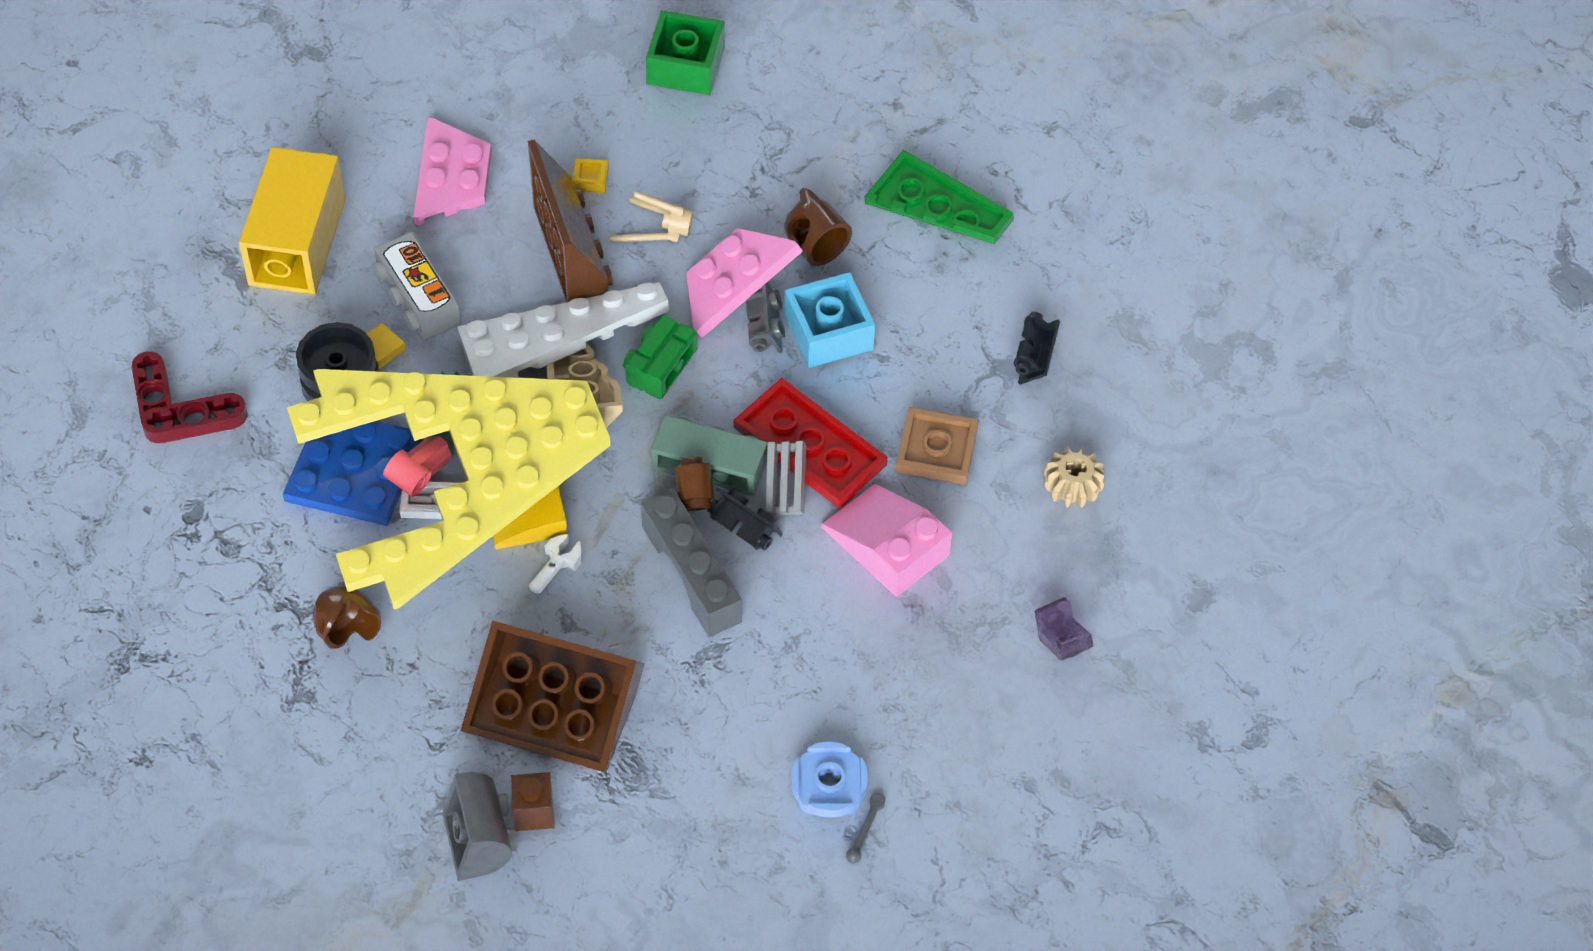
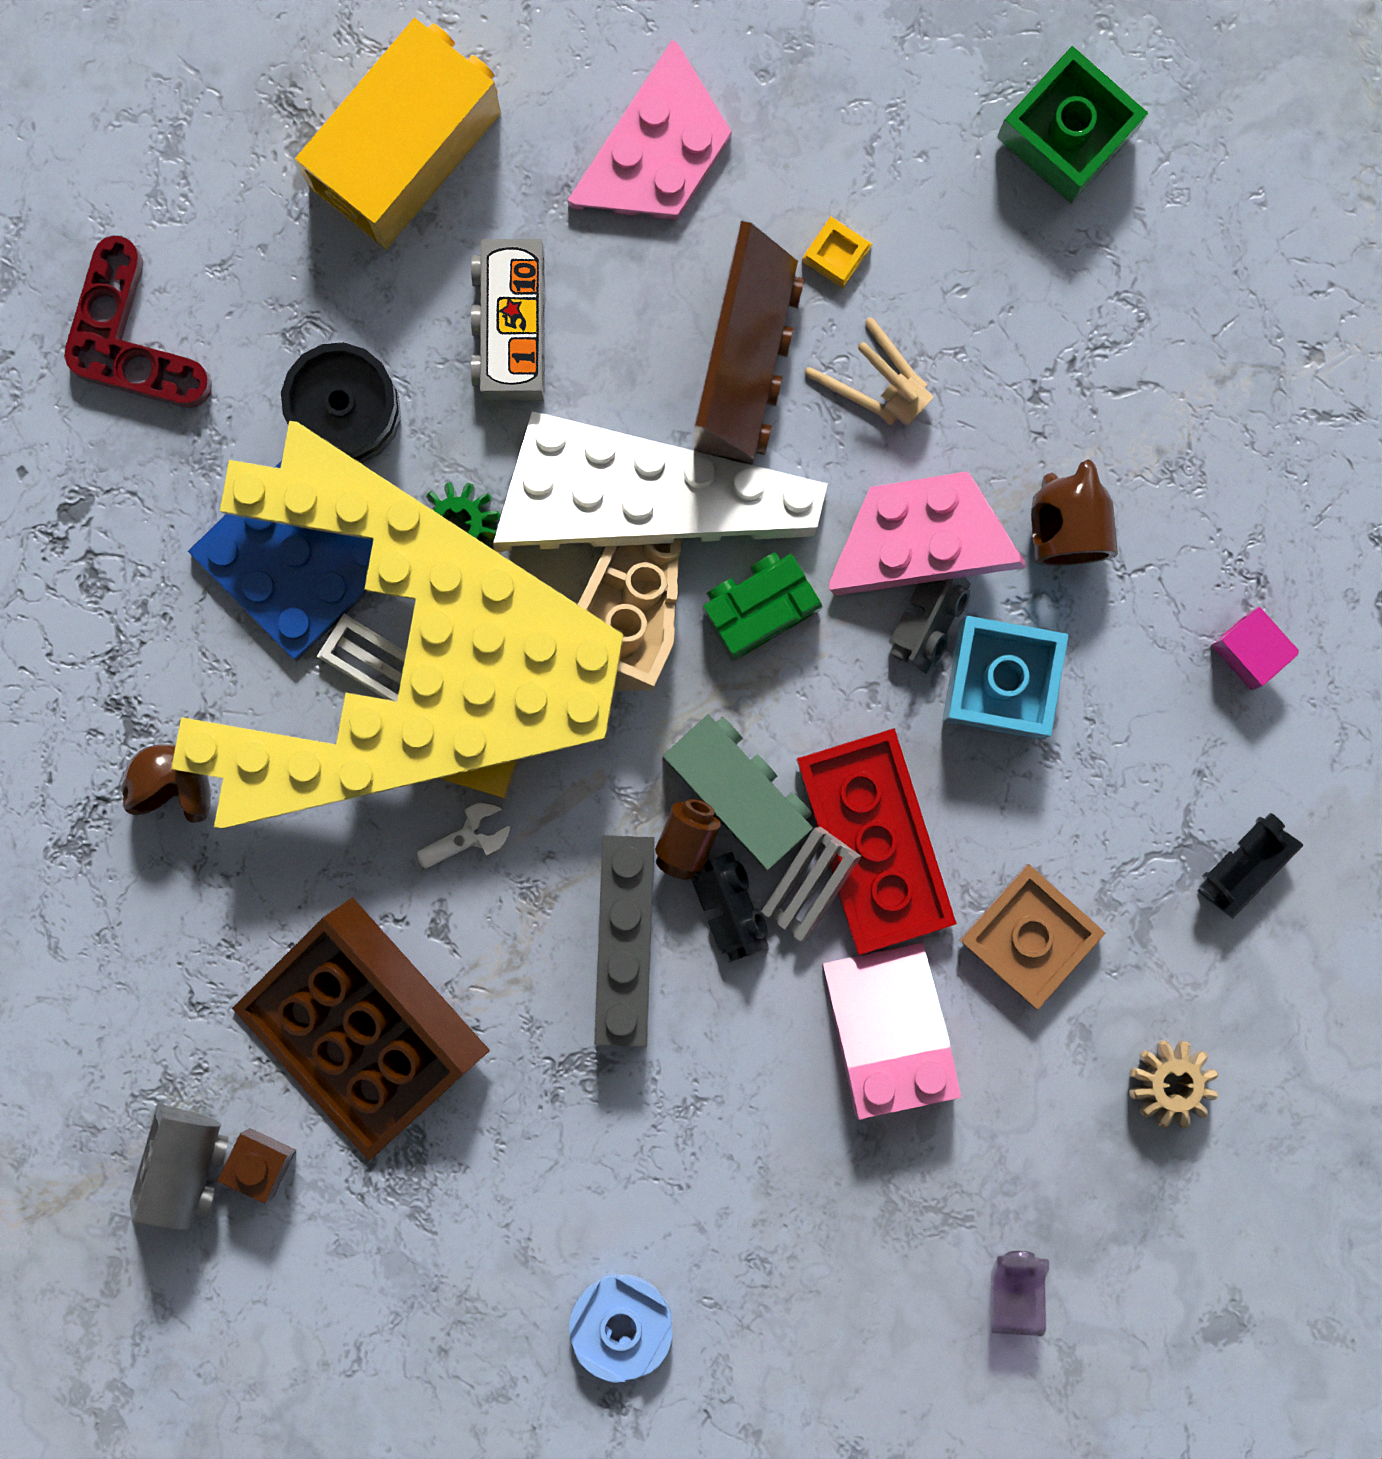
camera: 25 degrees right, 30 degrees up
(386, 344) = (422, 384): yellow tile -> none
(414, 469) = (357, 616): coral piece -> none
(877, 802) = (662, 1382): dark grey hinge -> none
(933, 197) = (1263, 544): green wing -> none
(962, 244) = (1255, 648): none -> dark pink panel

